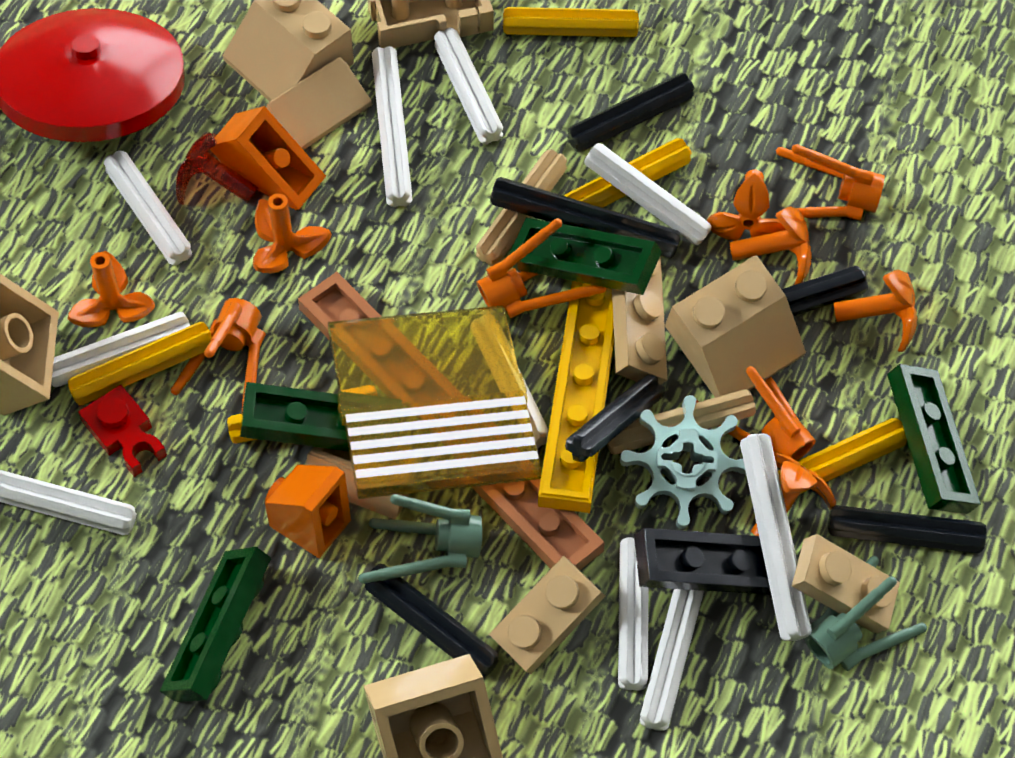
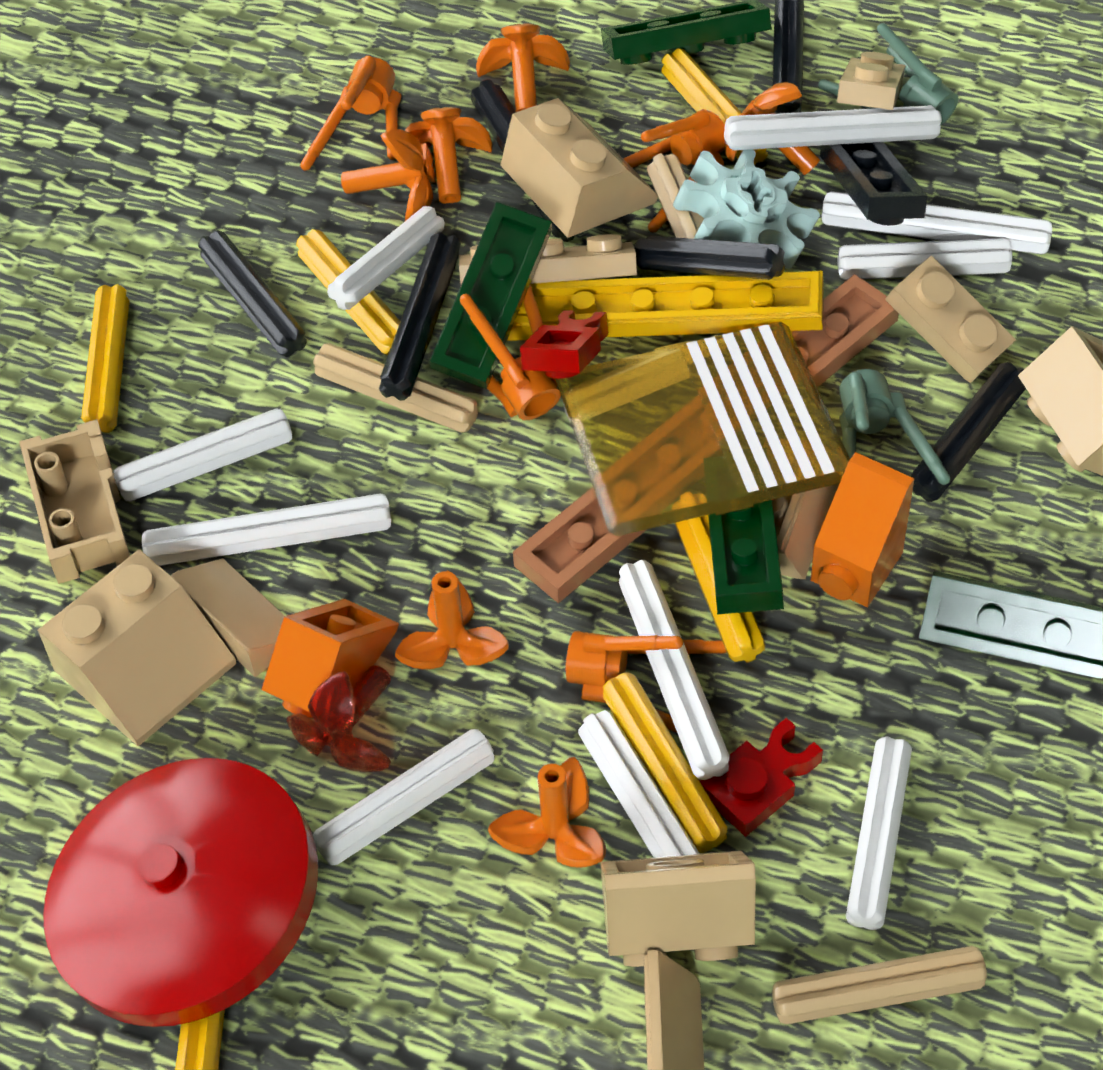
camera: 90 degrees left, 5 degrees down
(213, 371) = (674, 673): none -> white axle
(520, 304) = (564, 348): none -> red plate

